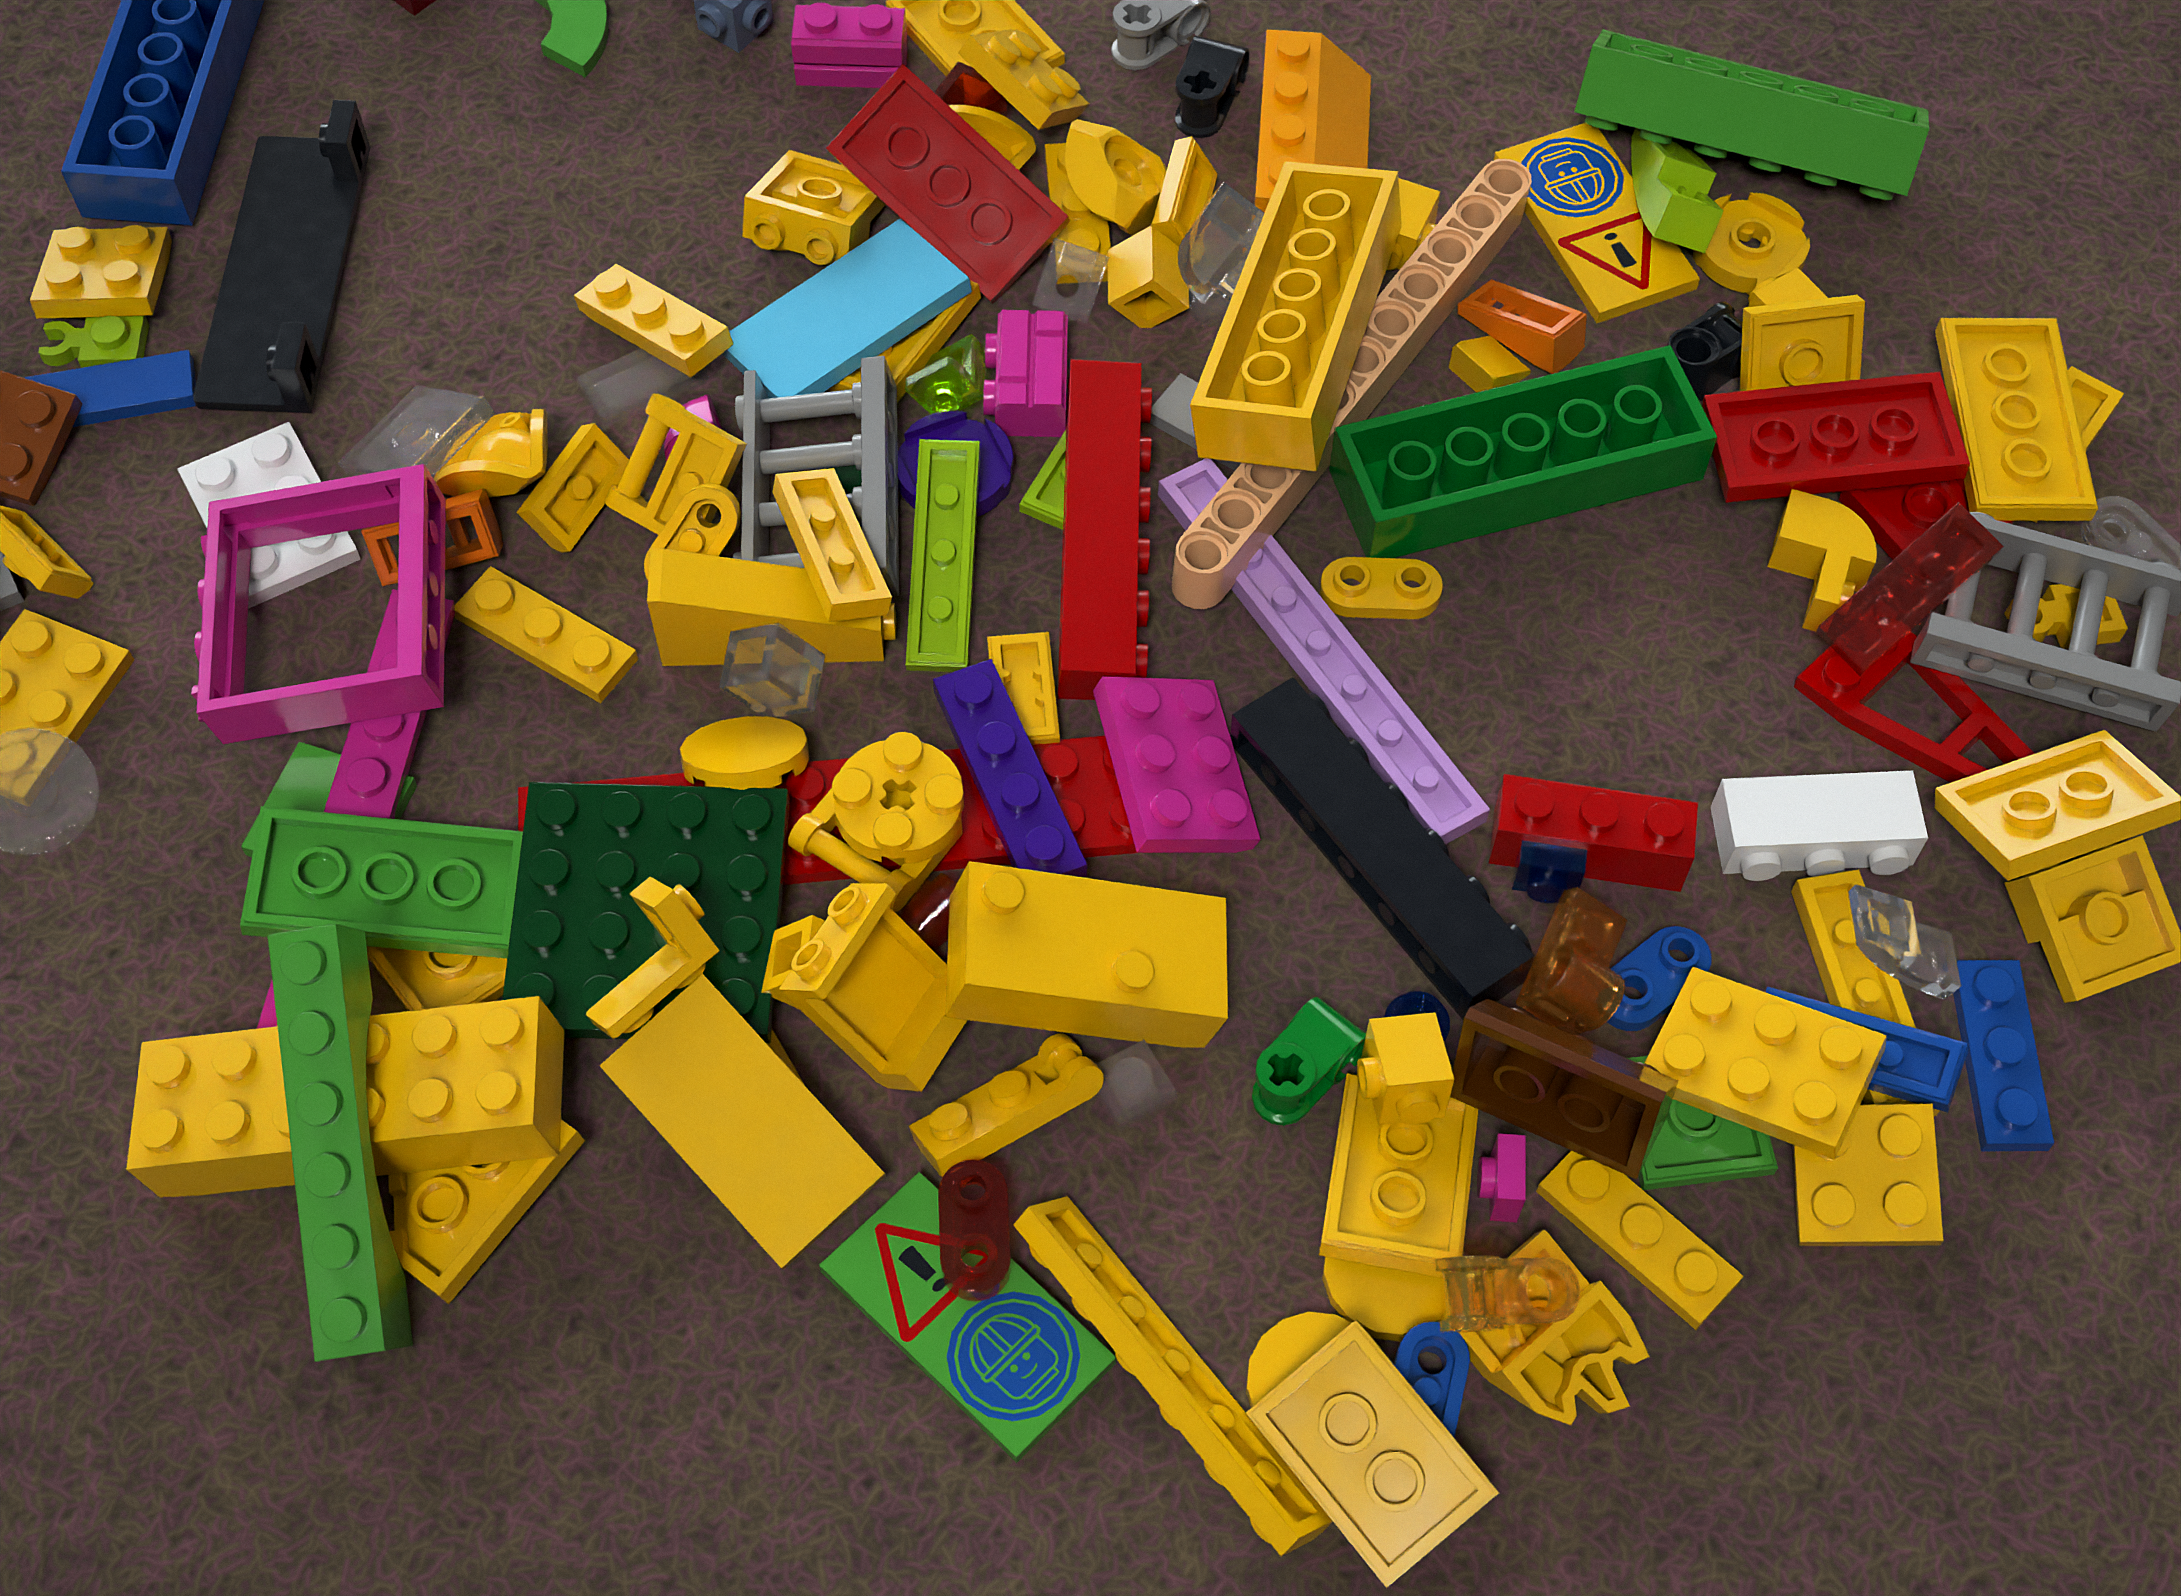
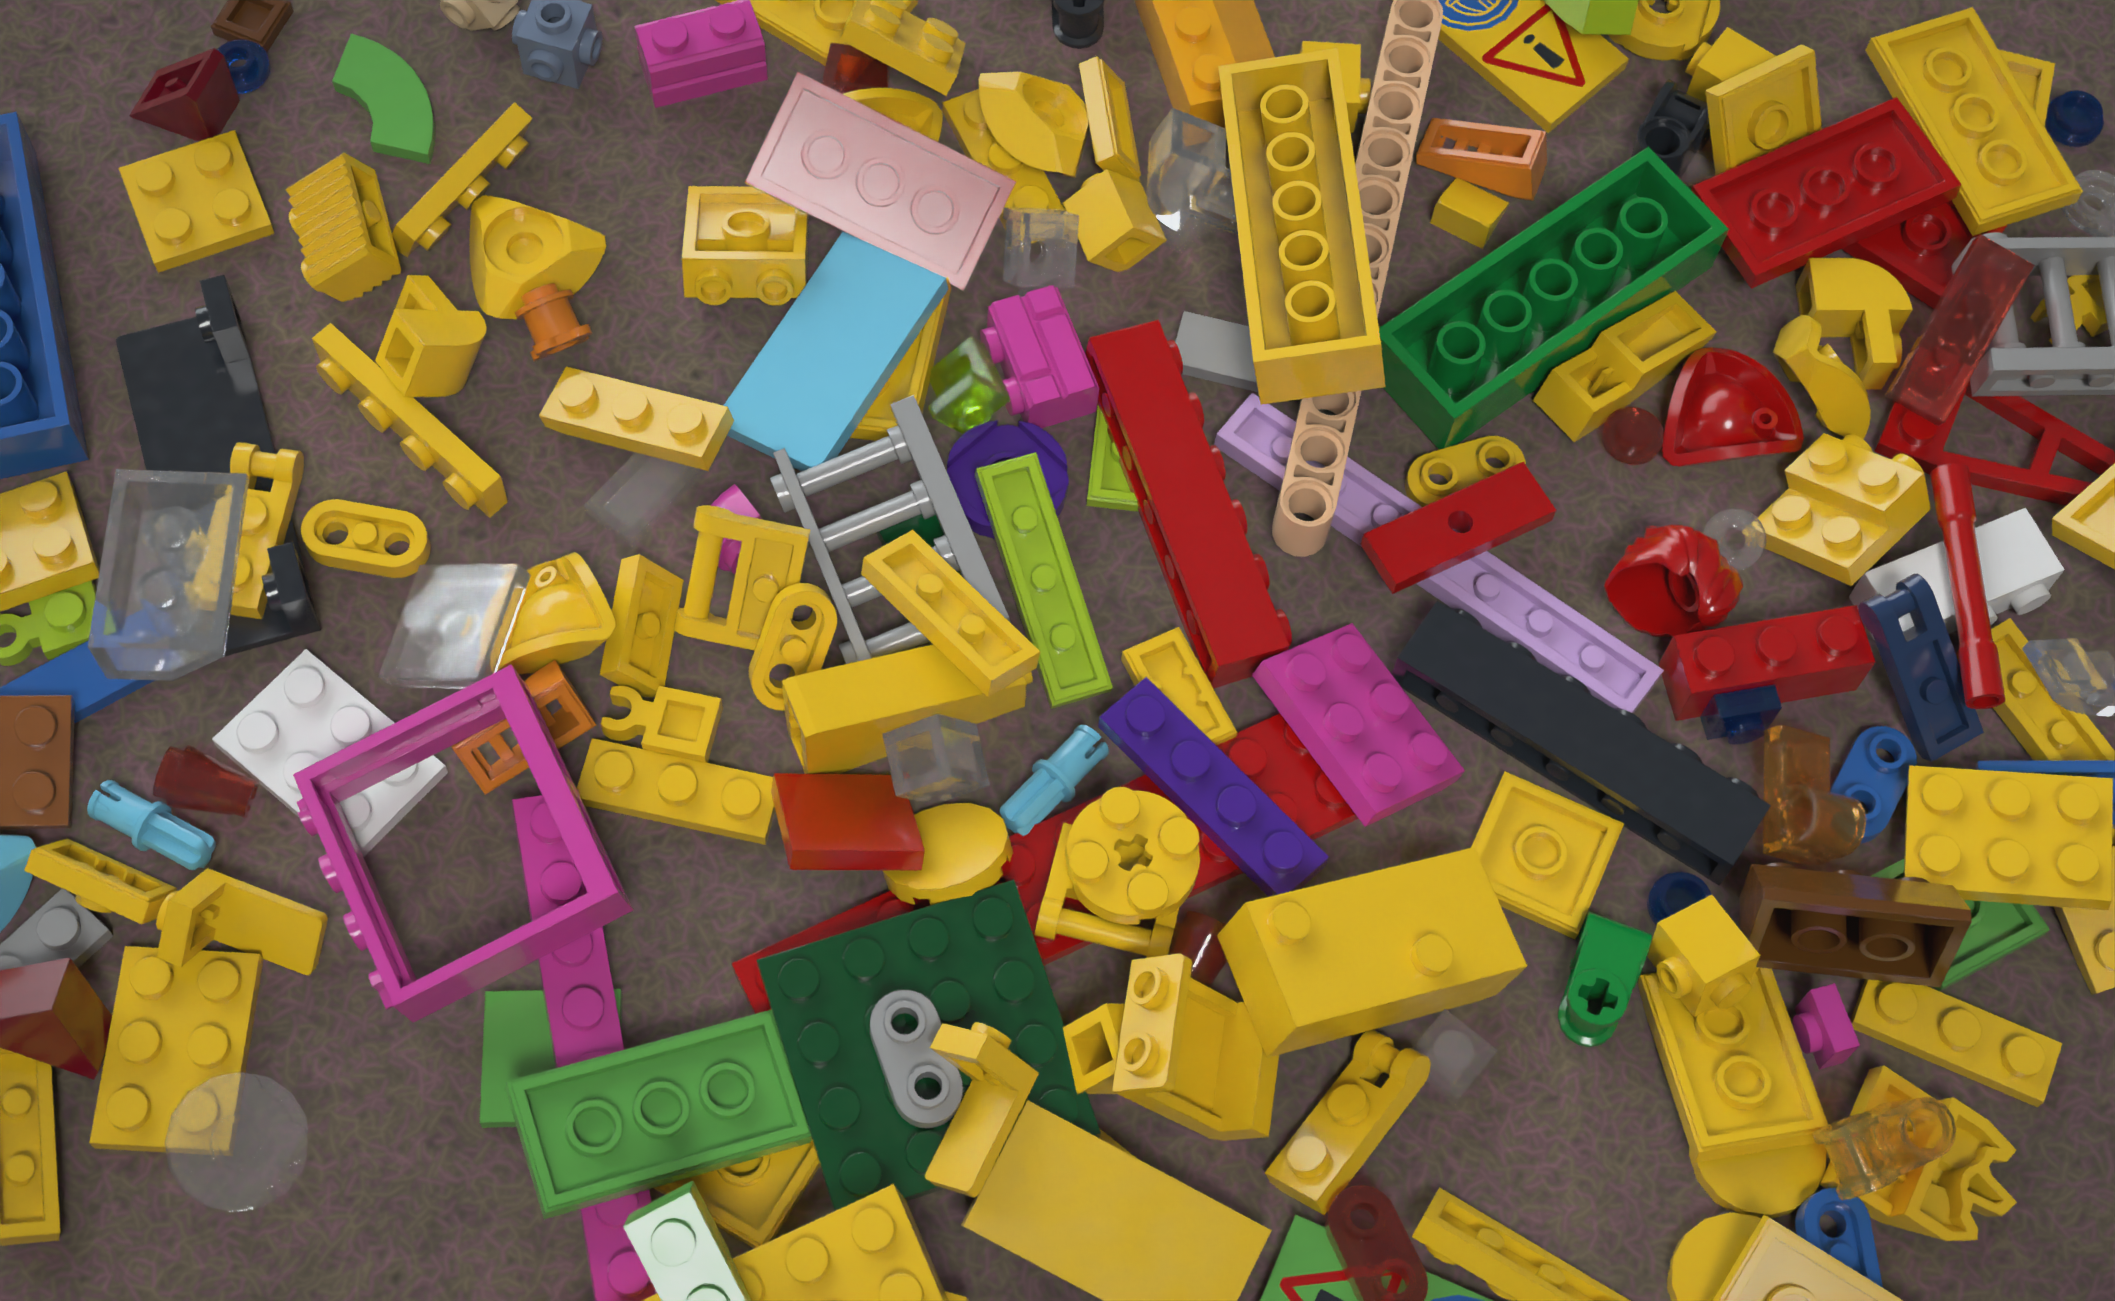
camera: 25 degrees left, 5 degrees up
(93, 521) = (151, 826): none -> medium azure axle
(120, 607) = (242, 918): none -> yellow bracket
(149, 499) = (202, 783): none -> clear red cone
(187, 314) = (167, 572): none -> clear slope
(286, 300) = (264, 520): none -> yellow plate
(378, 52) = (196, 201): none -> yellow plate
(387, 349) = (369, 536): none -> yellow plate
(467, 285) = (423, 435): none -> yellow plate
(481, 101) = (343, 229): none -> yellow brick
(503, 207) = (429, 341): none -> yellow brick
(564, 576) = (673, 724): none -> yellow plate
(598, 93) = (463, 182): none -> yellow plate
(614, 907) = (910, 1058): none -> light grey plate
(618, 222) = (551, 321): none -> orange brick
(628, 170) = (523, 249): none -> yellow hat
(664, 697) = (846, 823): none -> red tile
(873, 725) = (1053, 780): none -> medium azure axle
(1302, 935) = (1544, 853): none -> yellow tile
(1342, 620) = (1484, 512): none -> red tile
(1527, 729) = (1673, 582): none -> red hair
(1557, 600) = (1632, 436): none -> clear red plate
(1573, 535) = (1622, 365): none -> yellow slope
(1599, 714) = (1750, 526): none -> clear plate
(1657, 605) = (1728, 411): none -> red hat
(1731, 717) = (1844, 507): none -> yellow plate
(1742, 882) = (1921, 667): none -> dark blue plate
(1762, 605) = (1831, 384): none -> yellow hat
(1801, 878) = (1977, 650): none -> red piece
(2126, 450) = (2074, 118): none -> clear blue plate

